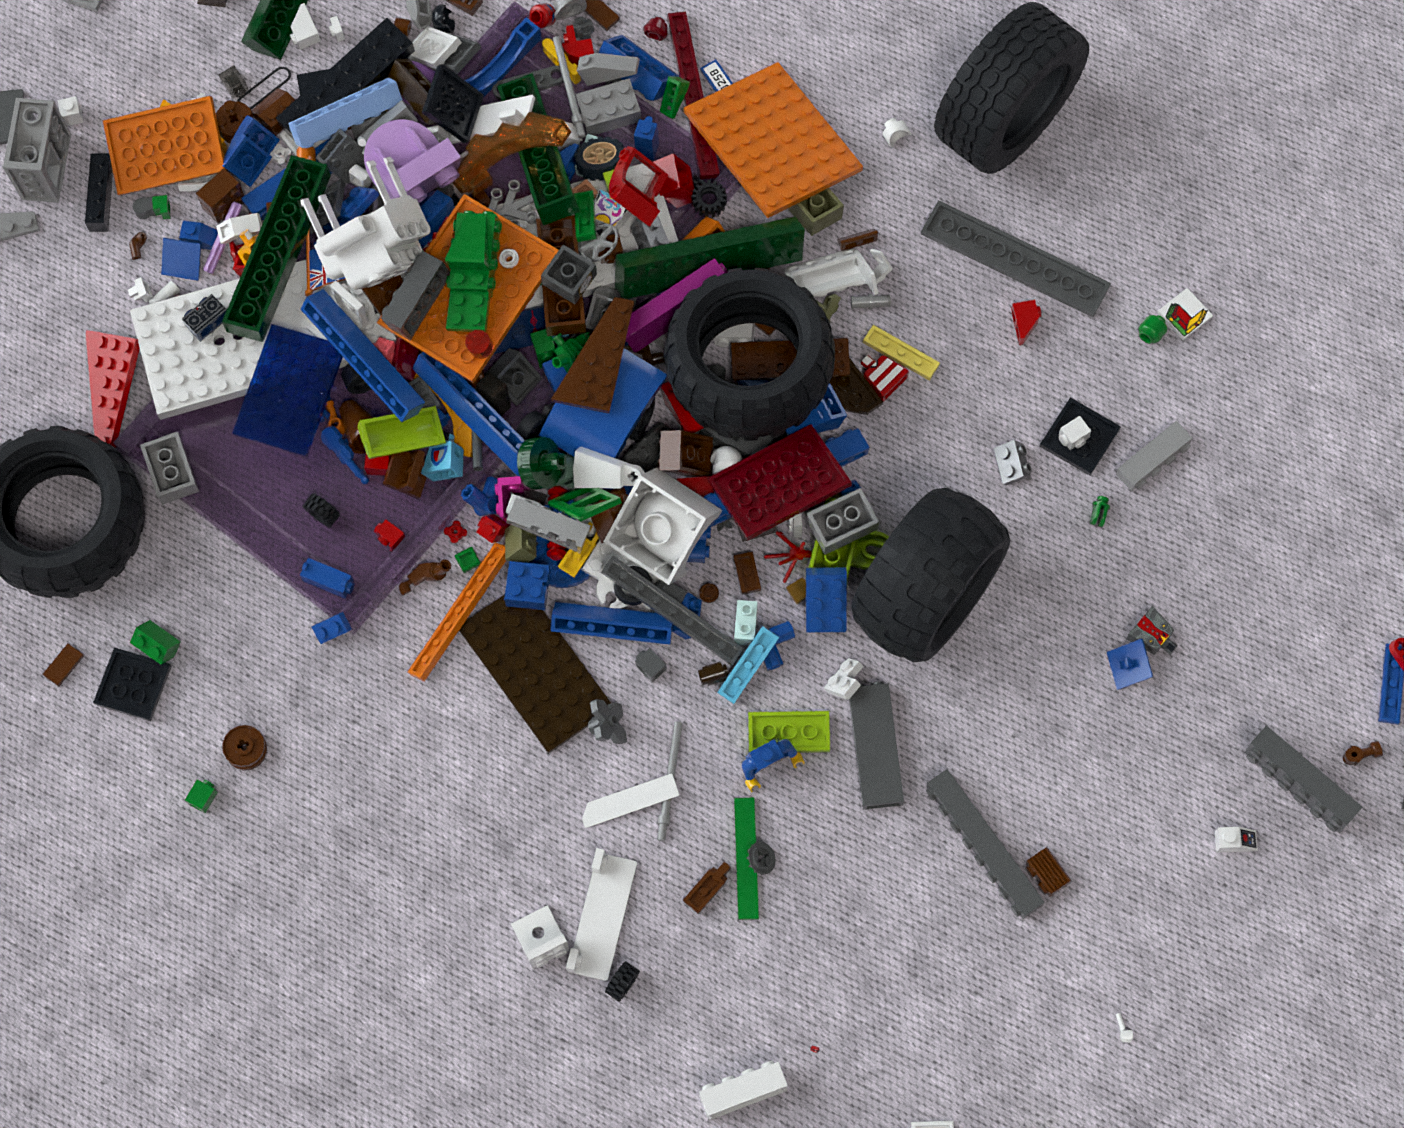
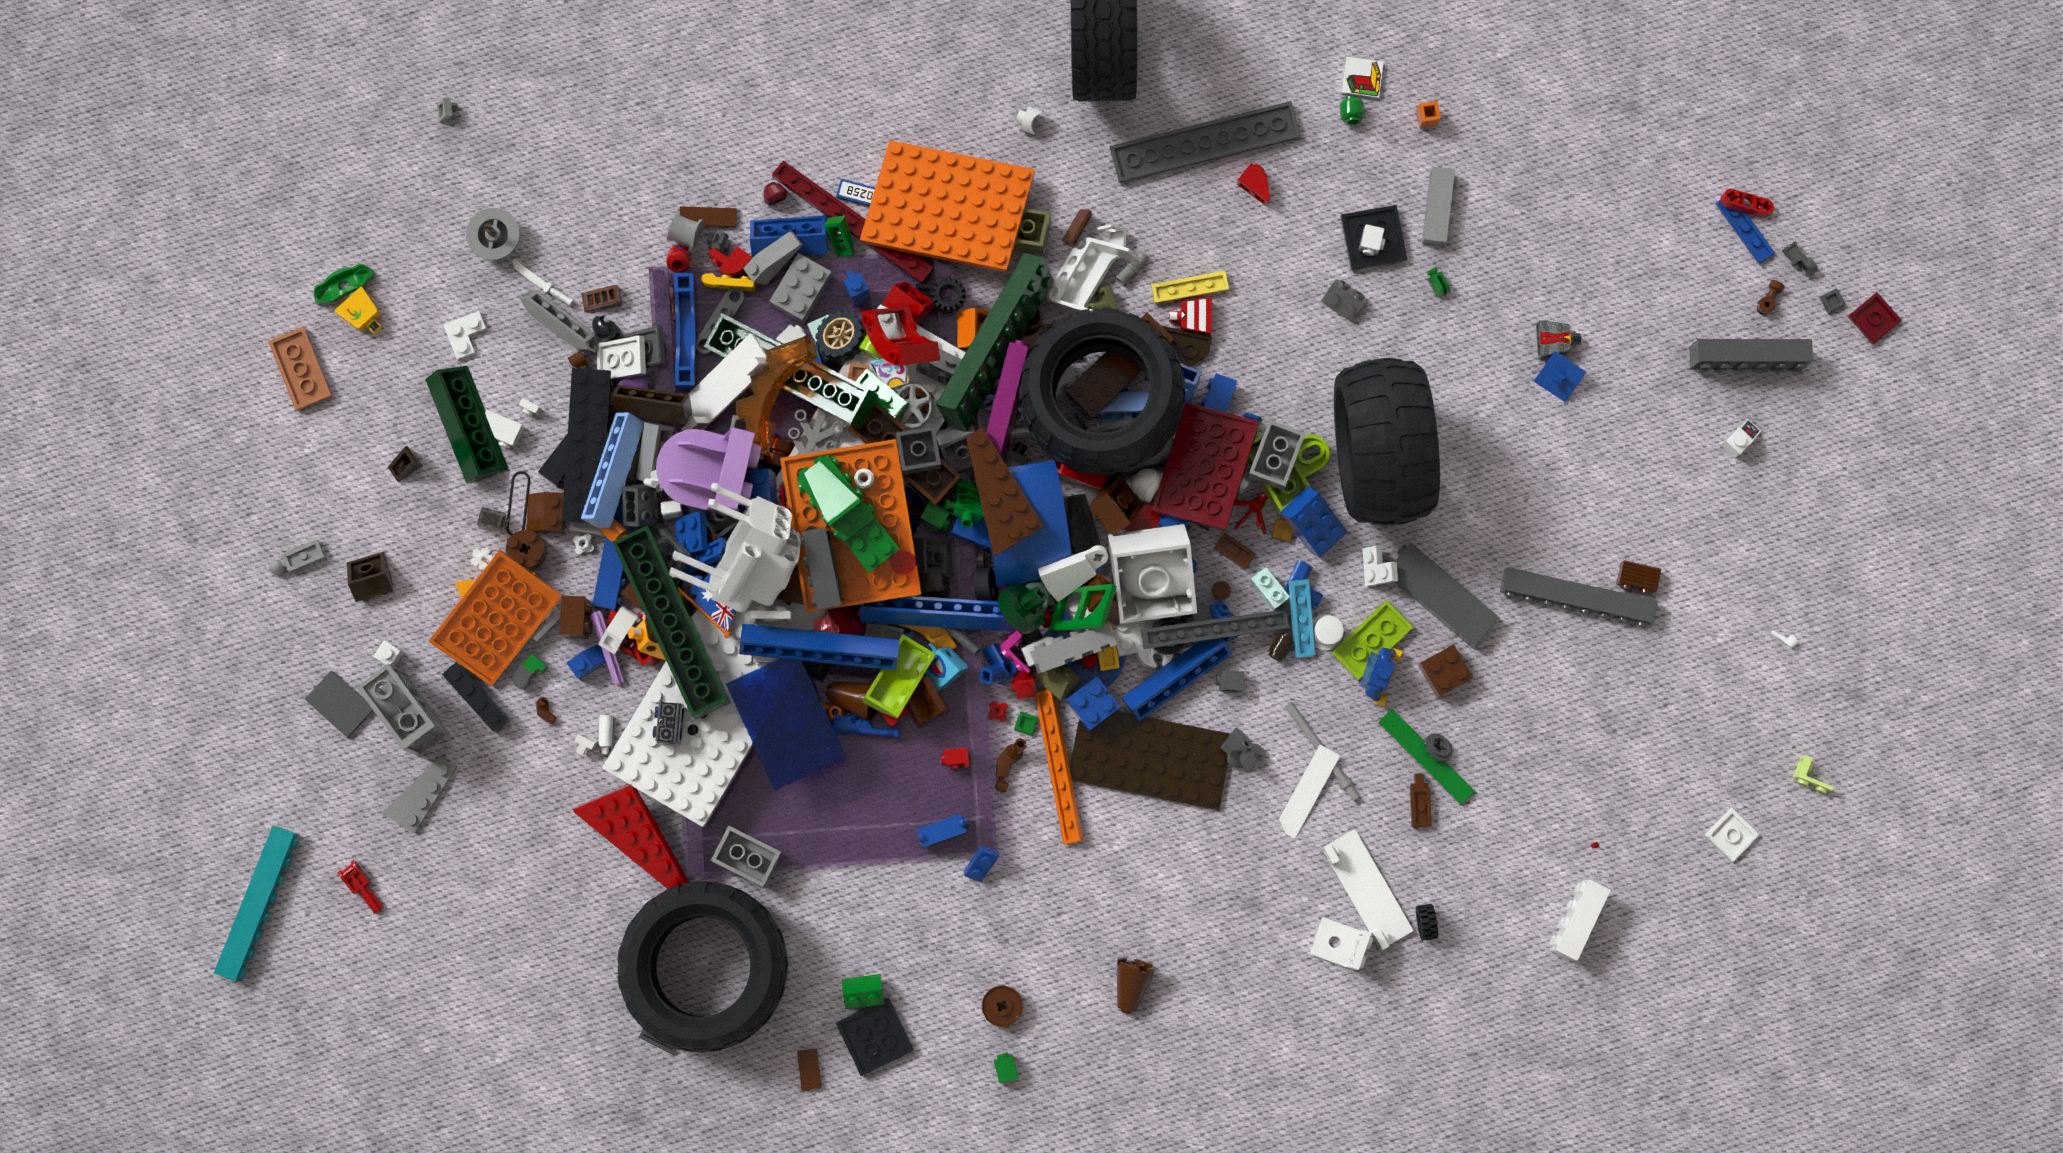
camera: 50 degrees left, 10 degrees up
(111, 48) = (369, 577): none -> dark brown slope
(181, 259) = (592, 692): blue piece -> none
(249, 151) = (562, 563): blue slope -> none
(321, 510) = (890, 785): black tyre -> none
(355, 818) = (1132, 983): none -> reddish brown cone
(452, 103) = (692, 392): black plate -> none
(577, 118) = (790, 319): light grey bar -> none
(759, 694) = (1327, 632): none -> white piece
(822, 805) = (1445, 671): none -> reddish brown brick
(1210, 380) = (1428, 114): none -> orange brick

